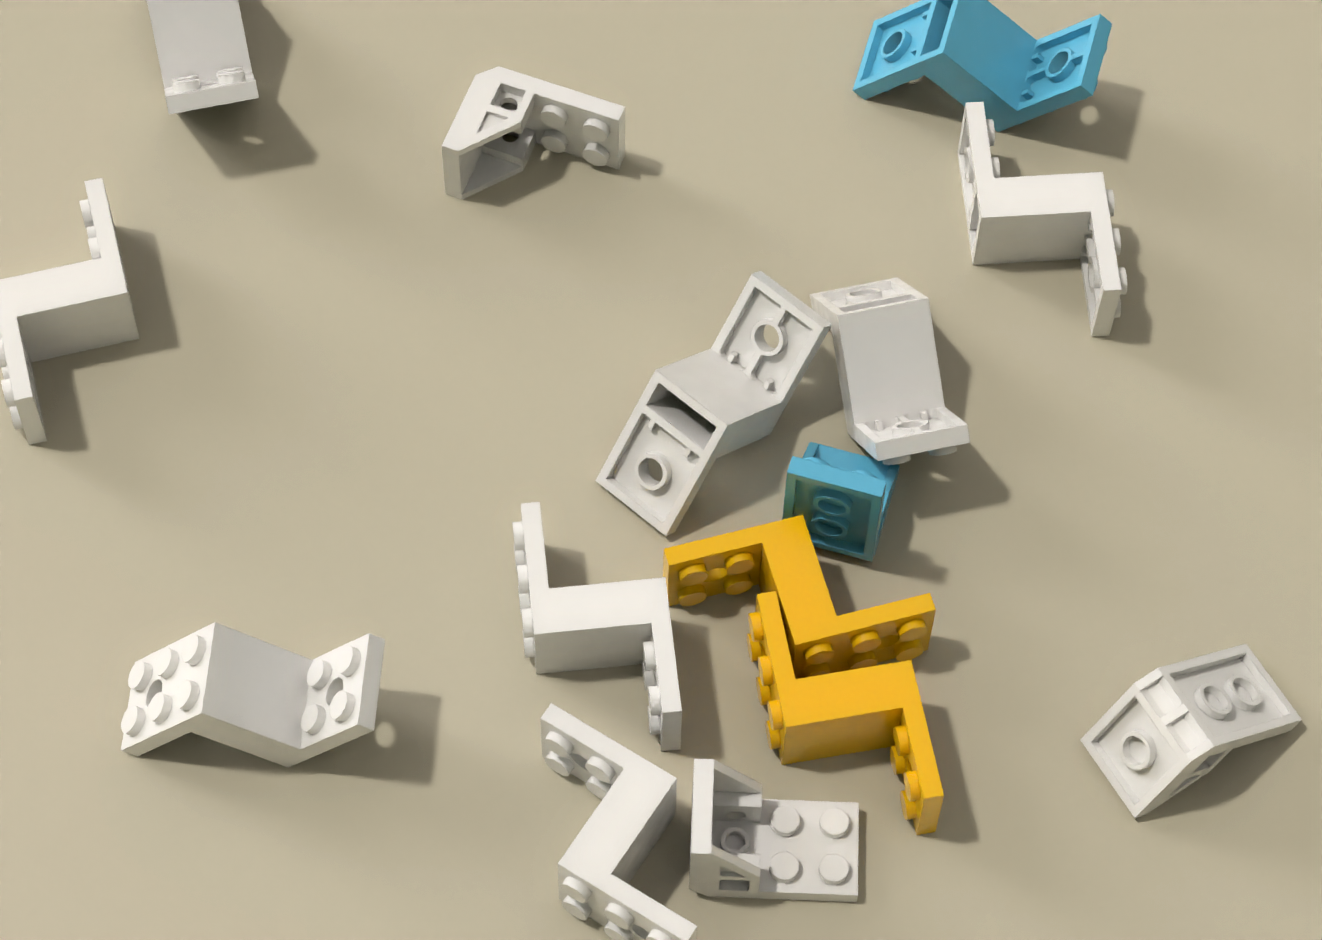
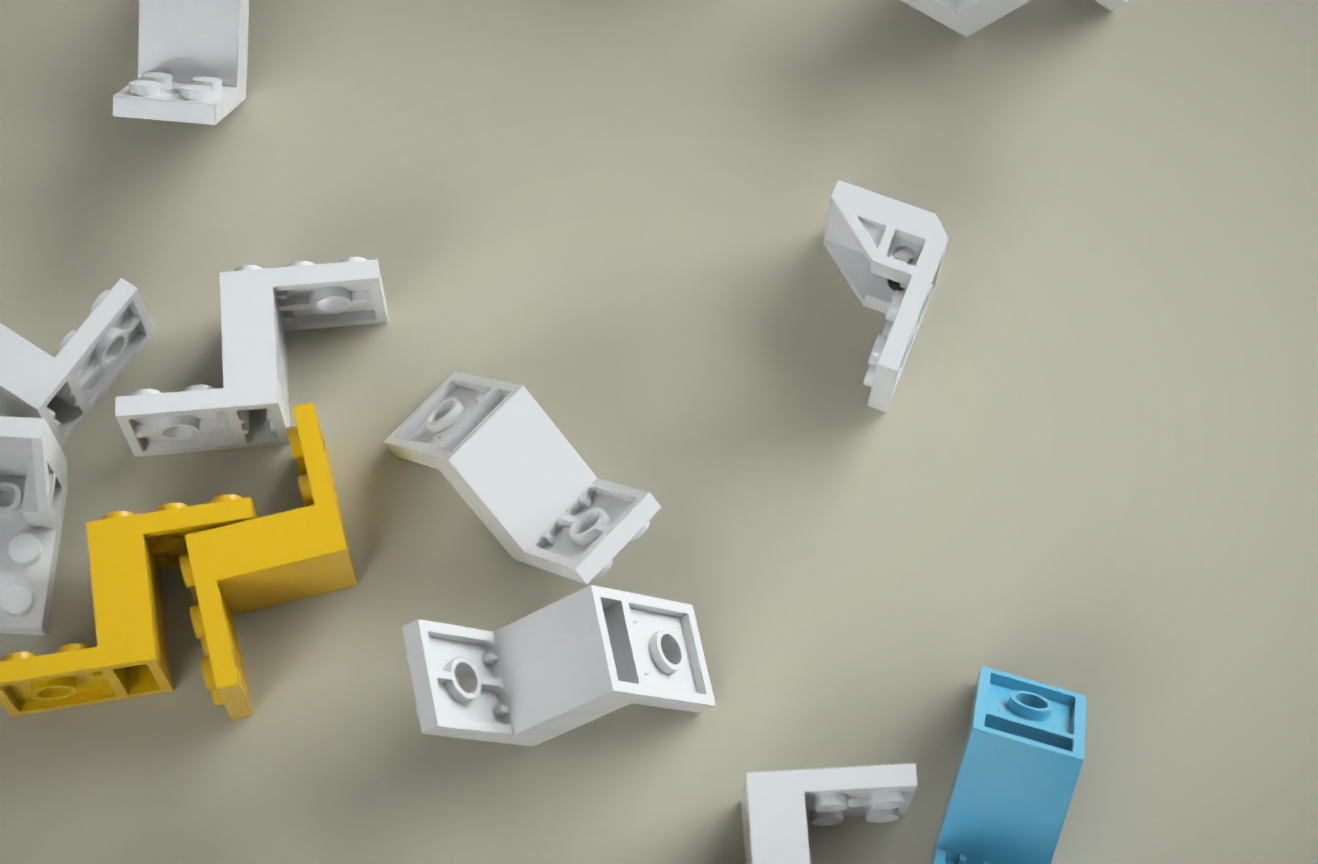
camera: 90 degrees right, 5 degrees up
(840, 498) = (382, 589): medium azure bracket -> none

